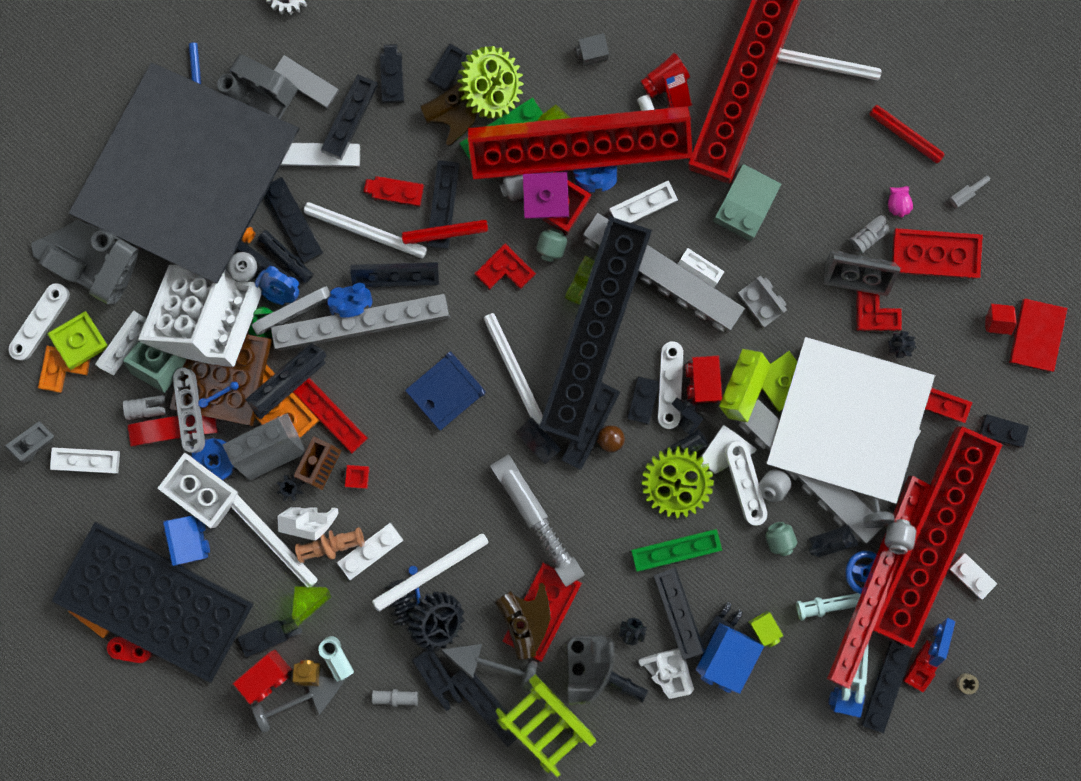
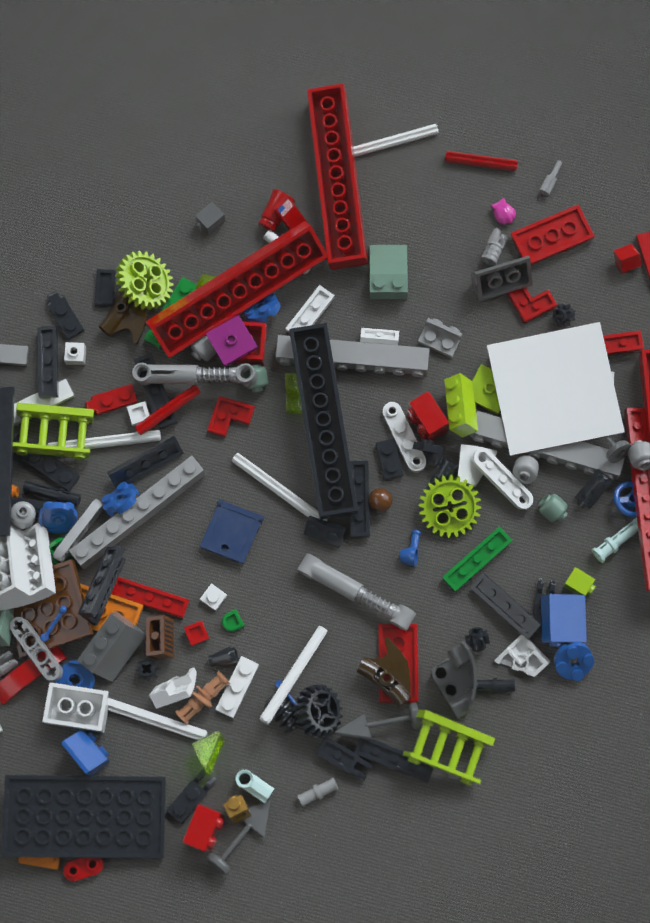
camera: 25 degrees left, 10 degrees down
(318, 171) = (45, 414): none -> lime fence
(373, 516) = (224, 657): none -> black cone
(385, 128) = (75, 359): none -> white plate
(393, 448) = (213, 597): none -> white plate
(399, 482) = (232, 621): none -> green tile
(414, 219) = (138, 412): none -> white plate
(487, 209) = (192, 374): none -> light grey piece
(610, 510) = (410, 555): none -> blue bar
(717, 714) = (580, 668): none -> blue plate

